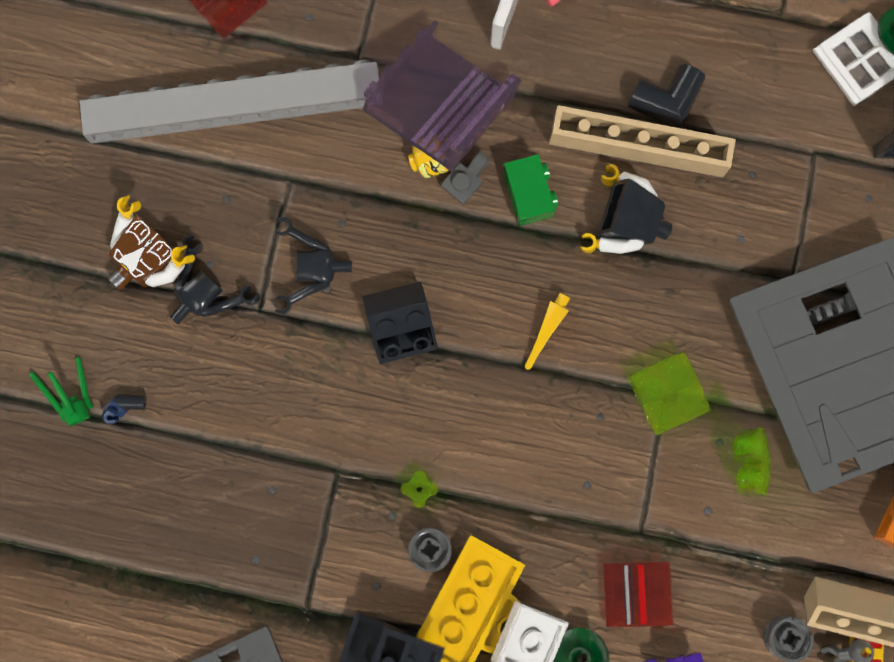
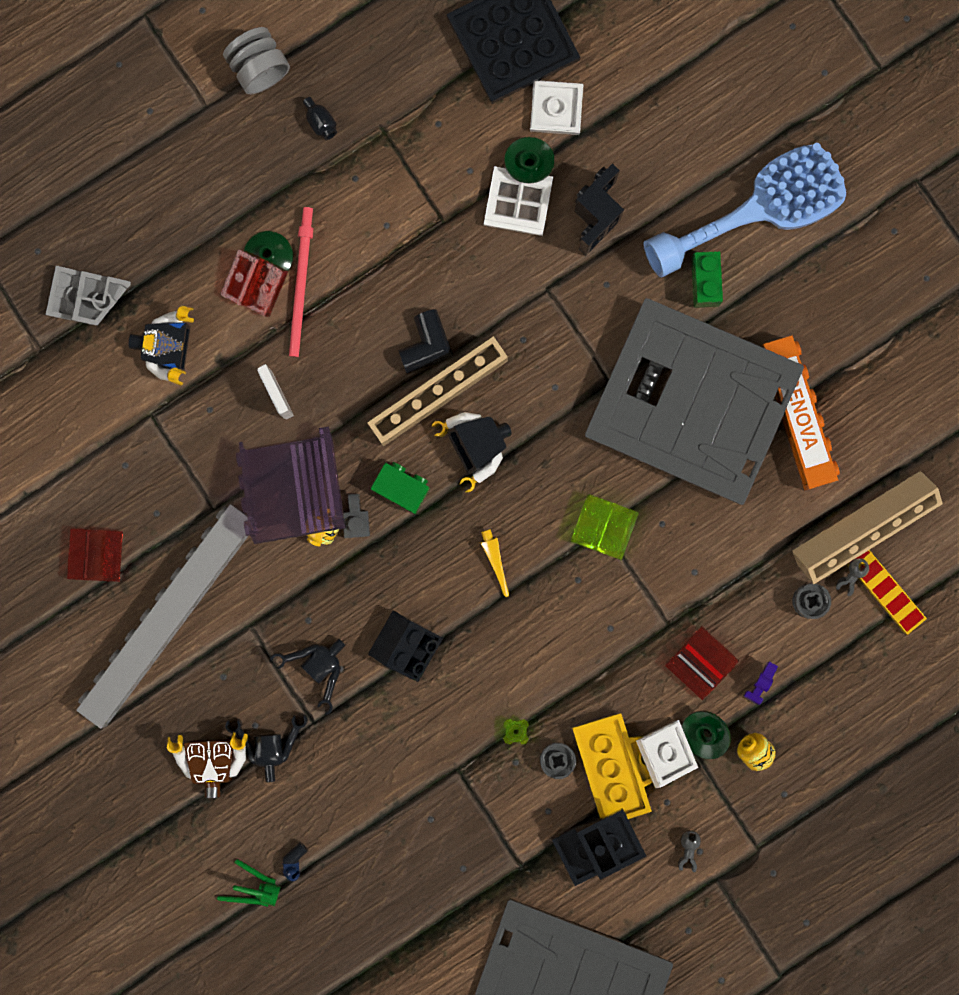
camera: 40 degrees left, 5 degrees up
(753, 451) = (684, 514): clear neon green slope -> none

